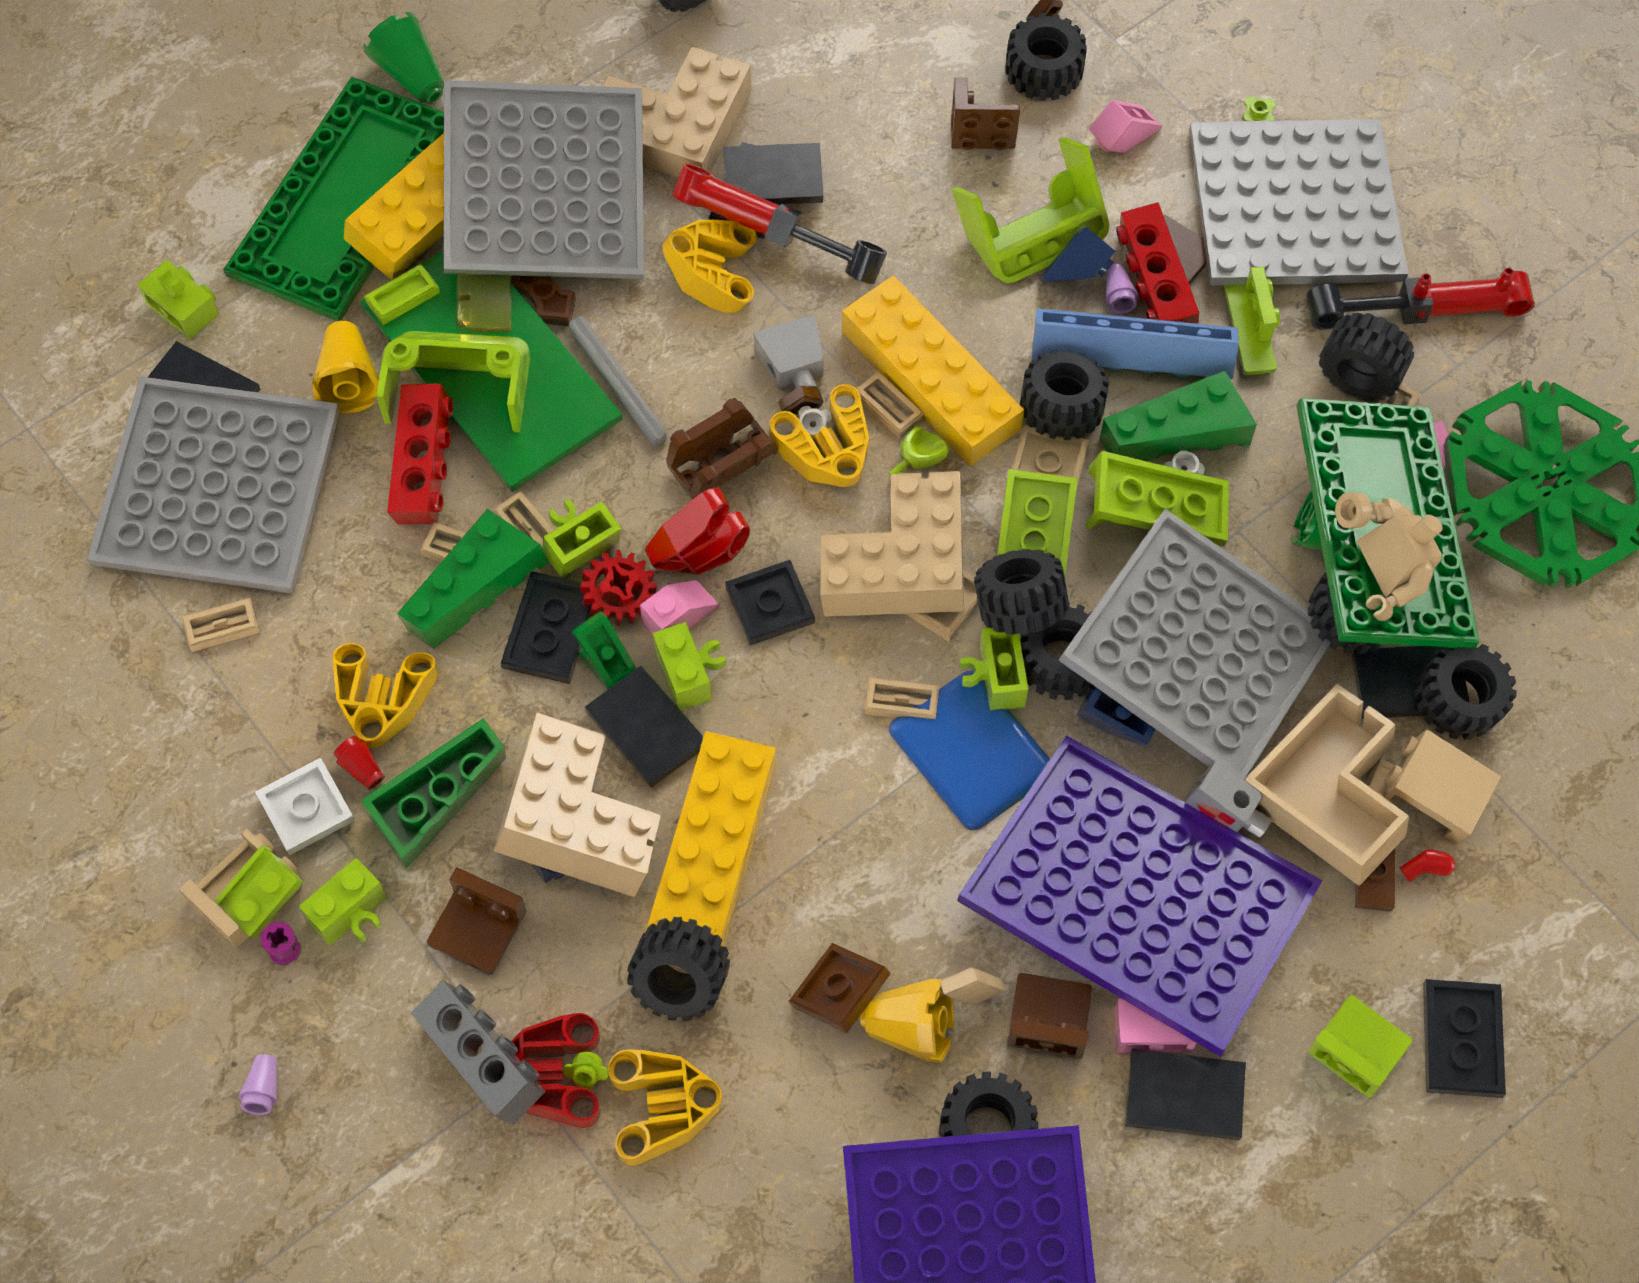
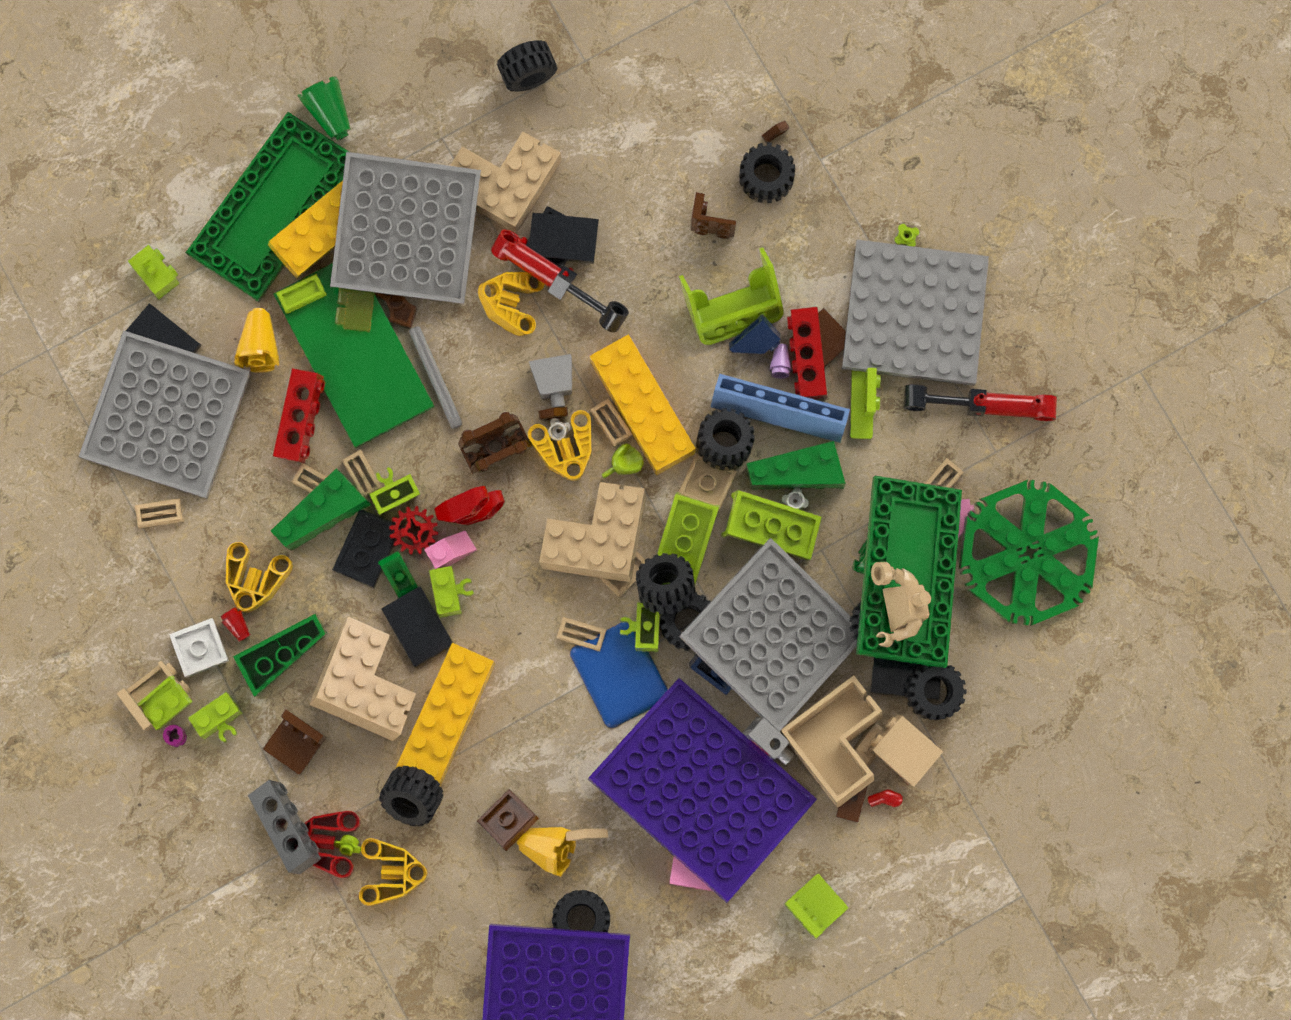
camera: 10 degrees right, 15 degrees up
(260, 1086) = (153, 823): lavender cone -> none
(494, 354) = (360, 352): lime windscreen -> none
(770, 602) = (509, 553): black tile -> none
(1050, 1015) = (632, 856): reddish brown bracket -> none
(1123, 126) = (810, 235): bright pink slope -> none
(1185, 1094) = (704, 917): black tile -> none
(1366, 356) = (929, 445): black tyre -> none
(1464, 1038) = (881, 910): black tile -> none

